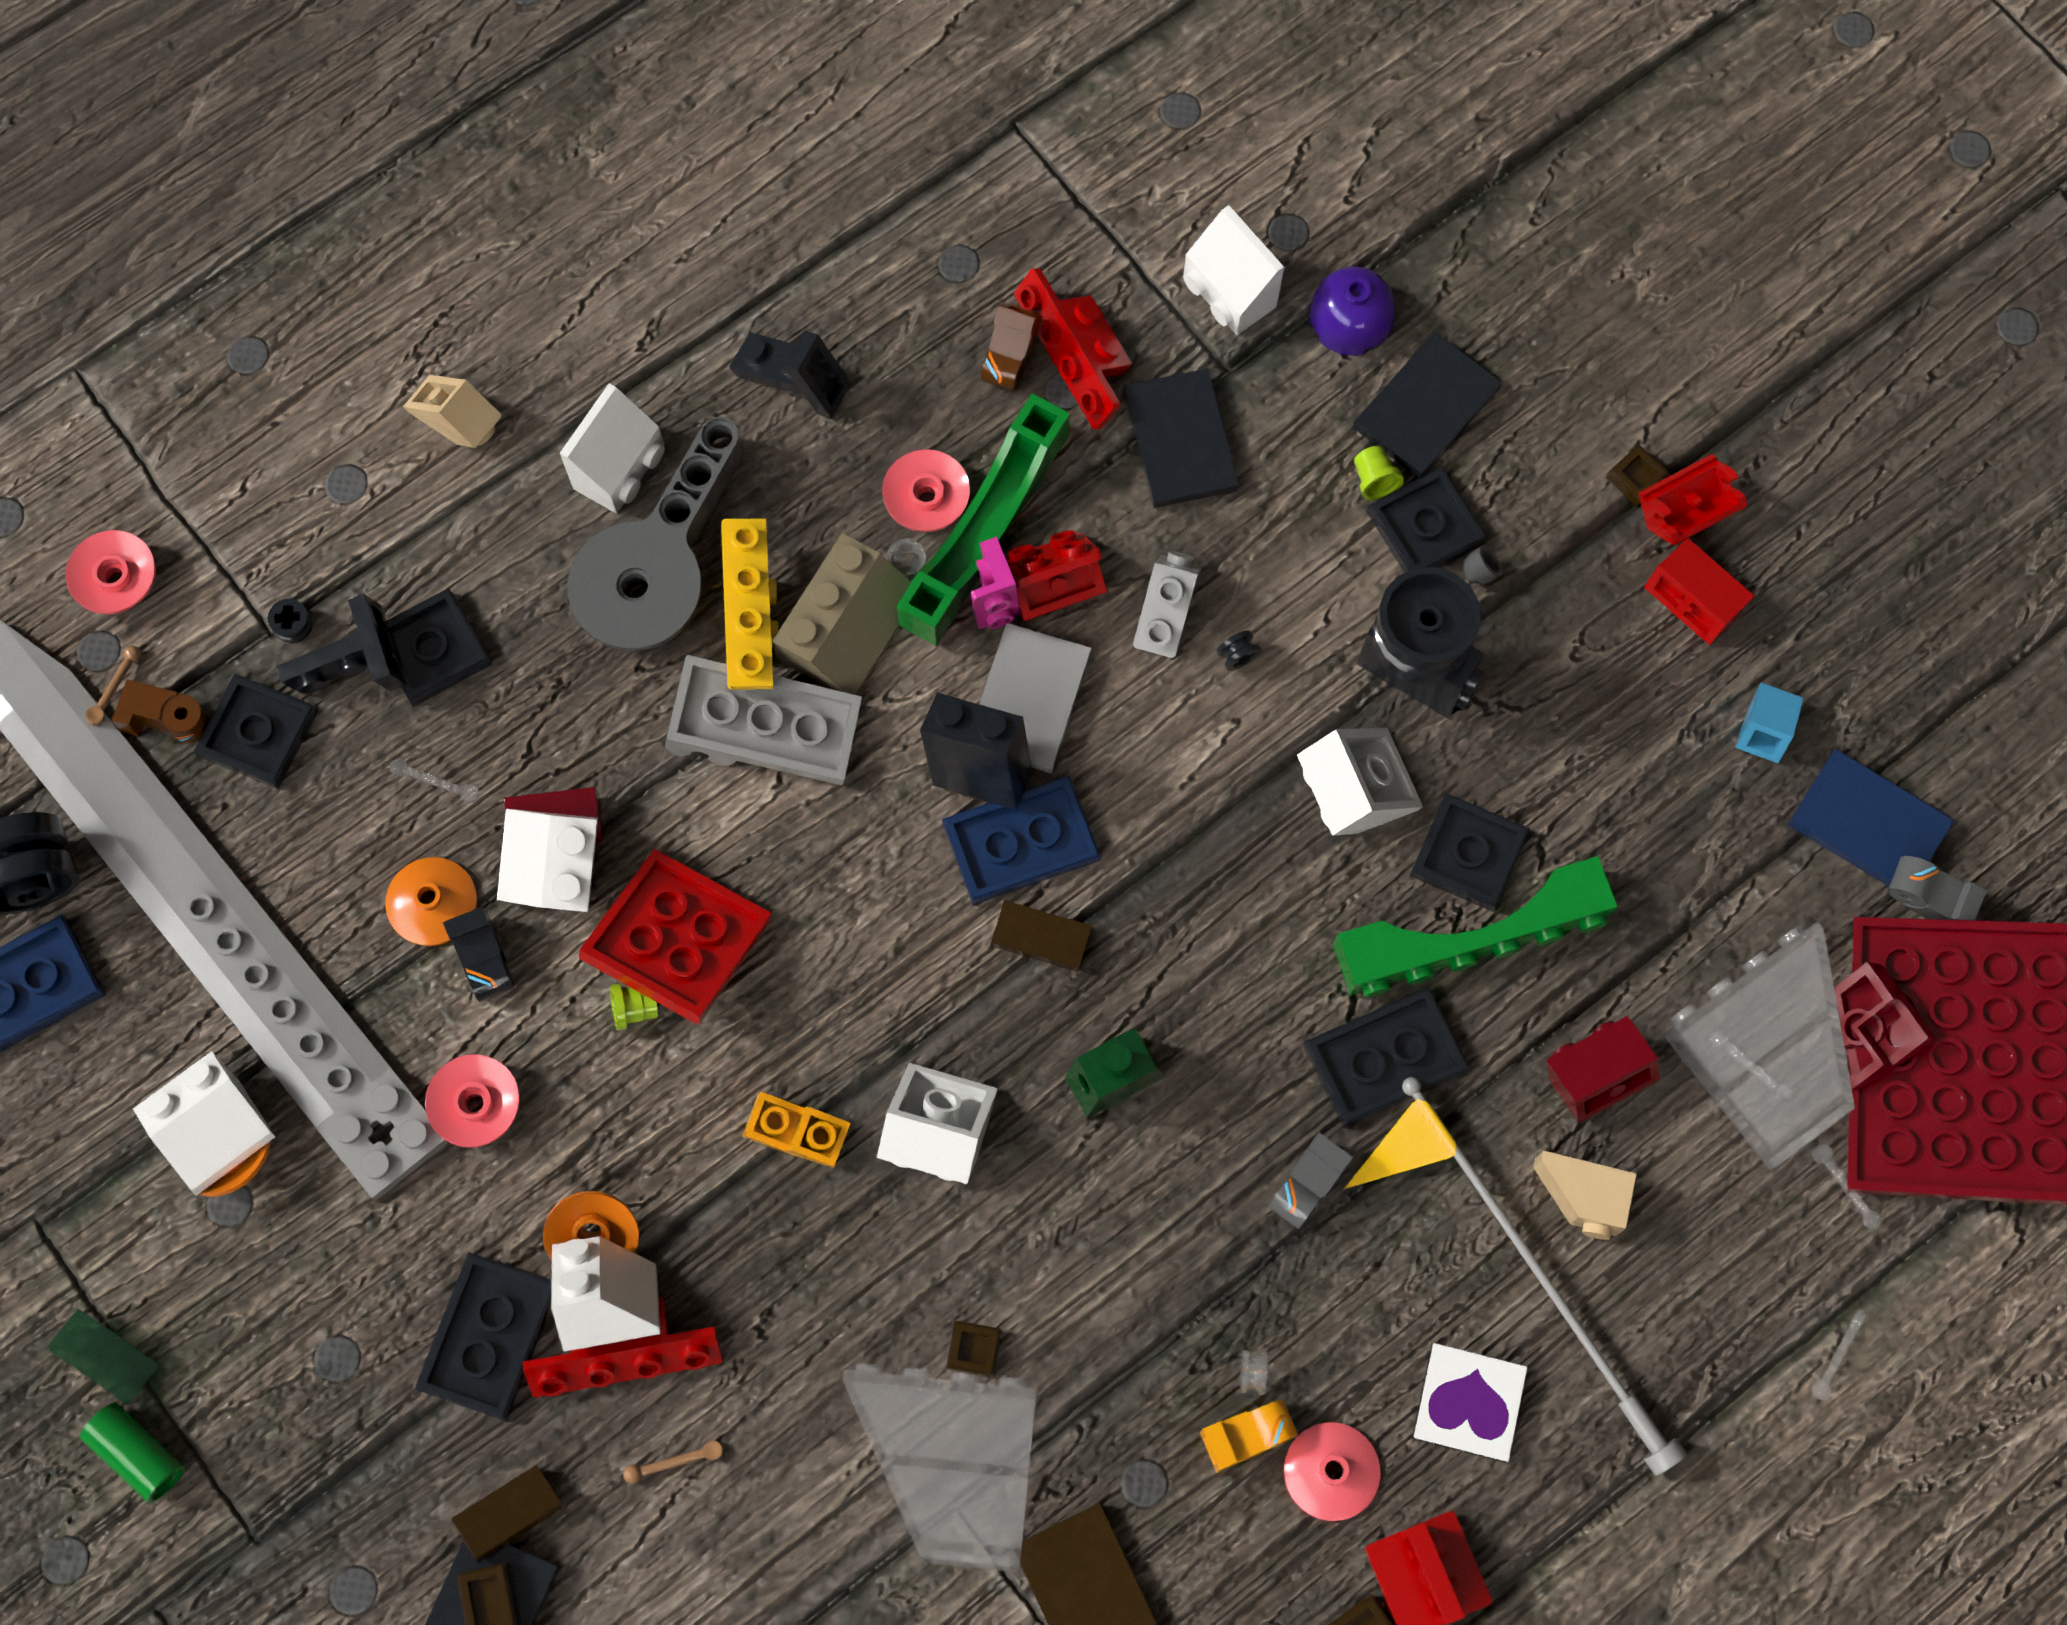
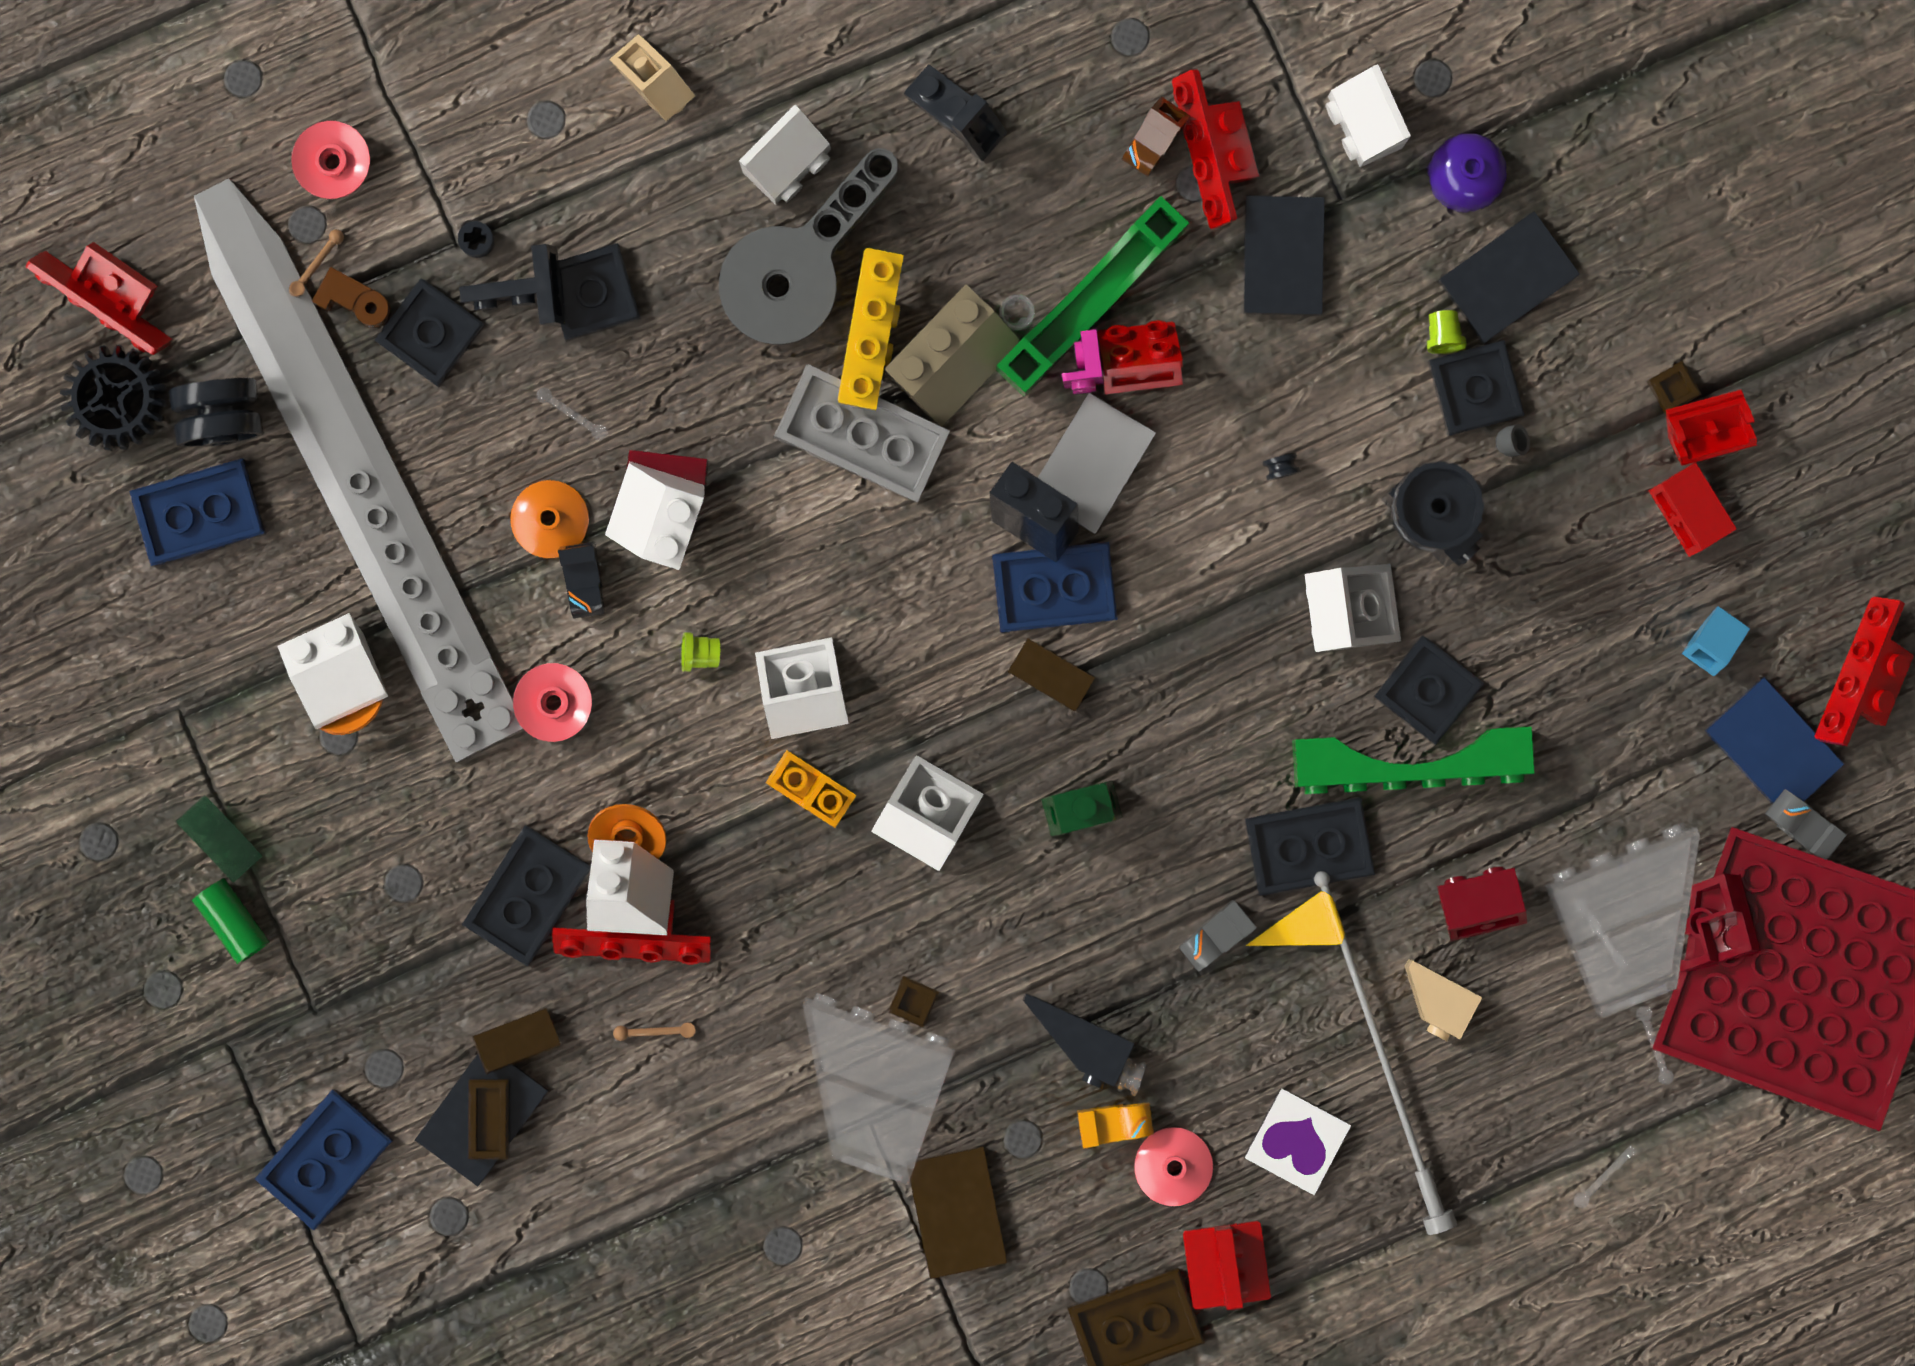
camera: 10 degrees right, 15 degrees up
(675, 936) = (747, 605): red plate -> none
(762, 1018) = (801, 688): none -> white slope
(921, 473) = (1054, 235): coral dish -> none
(1167, 604) = (1232, 408): light grey bracket -> none
(1189, 1346) = (1087, 1045): none -> black slope
(1948, 717) = (1868, 676): none -> red bracket

